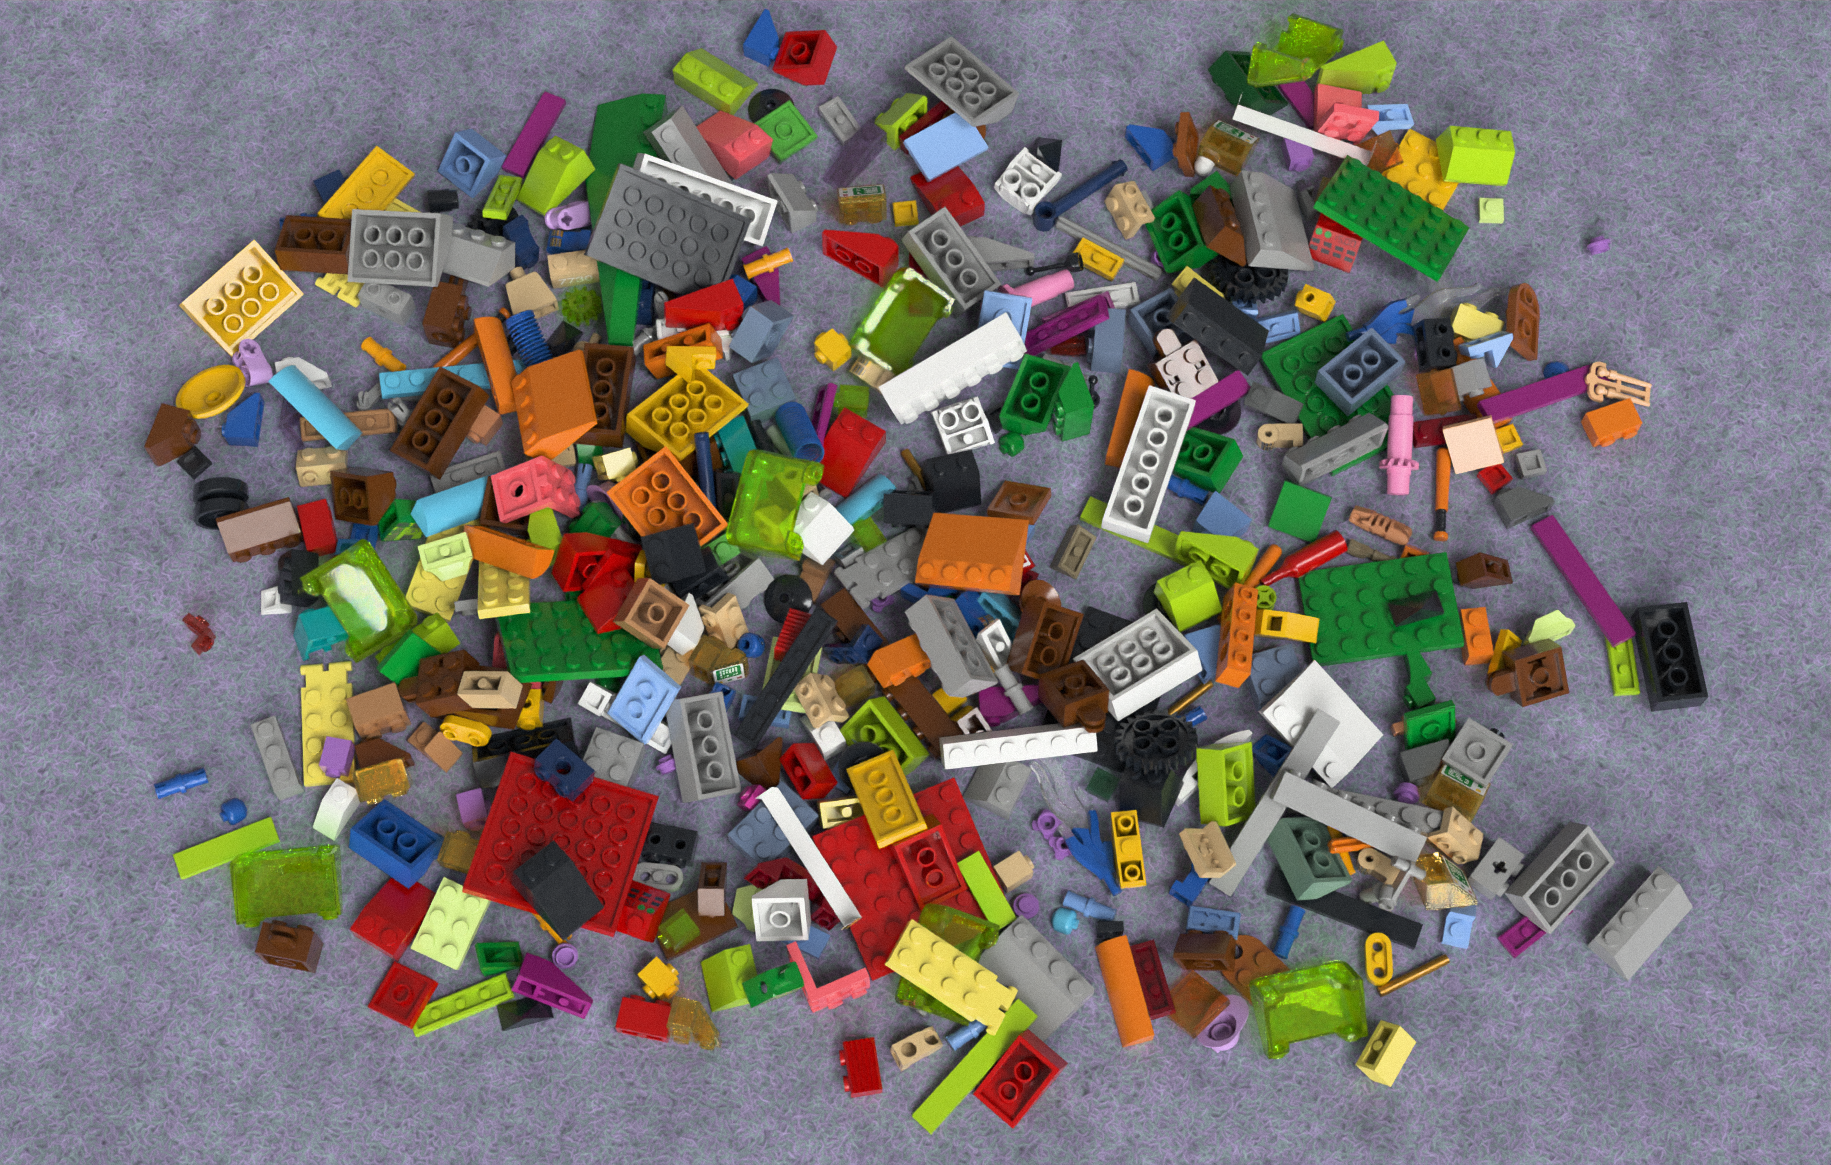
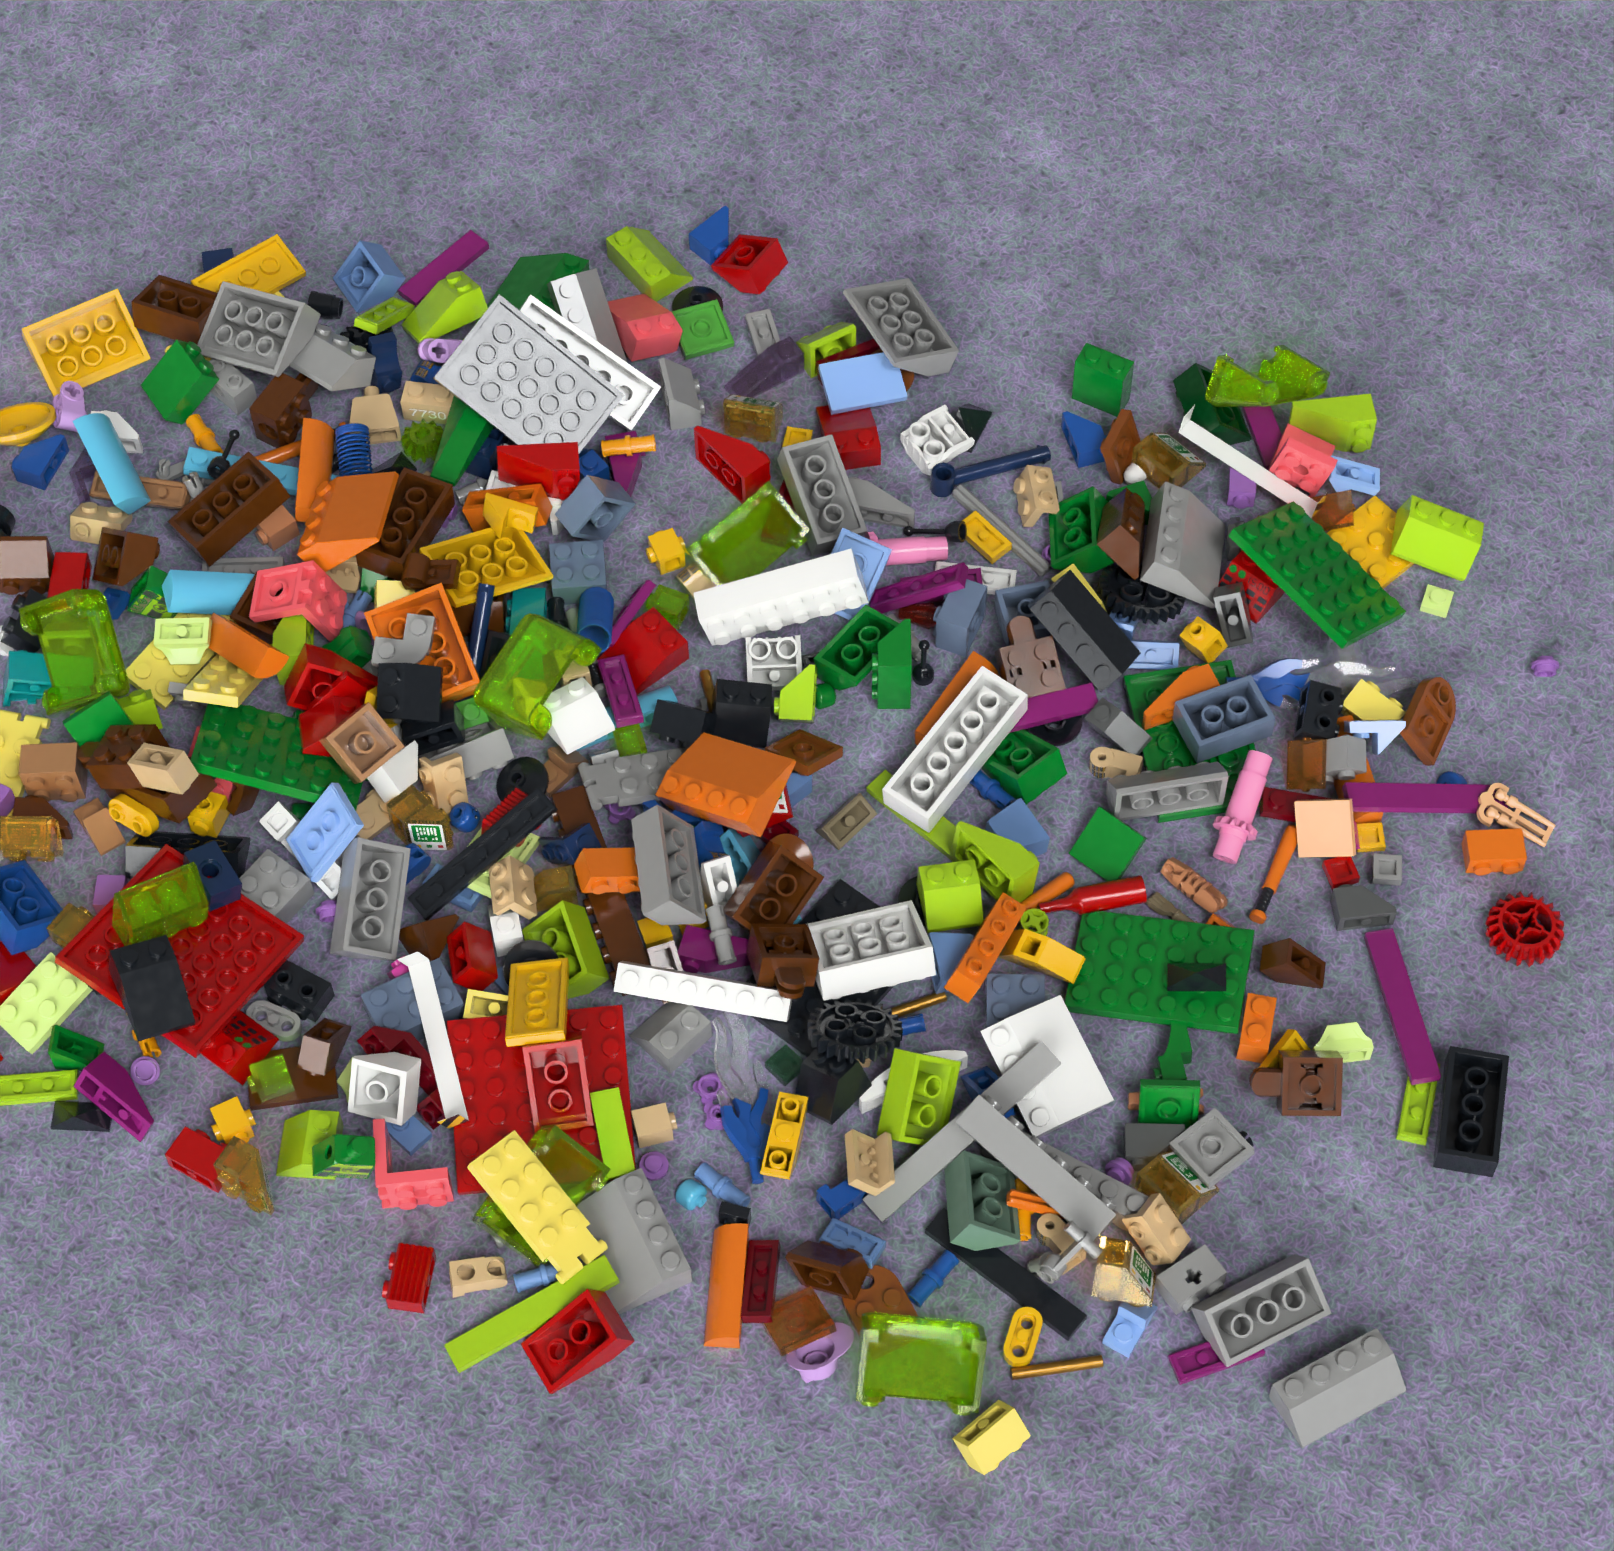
camera: 20 degrees right, 10 degrees down
(344, 312) = (180, 381): none -> green brick
(415, 385) = (220, 461): none -> black hinge
(536, 816) = (160, 905): none -> clear neon green slope
(648, 438) = (423, 573): none -> reddish brown plate
(659, 515) = (414, 646): none -> light grey plate
(845, 494) = (620, 691): none -> magenta tile
(999, 455) = (798, 698): none -> lime slope
(1151, 87) = (1102, 379): none -> green brick
(1323, 349) = (1191, 682): none -> orange slope
(1331, 271) = (1233, 614): none -> dark grey slope
(1677, 484) = (1542, 942): none -> red gear

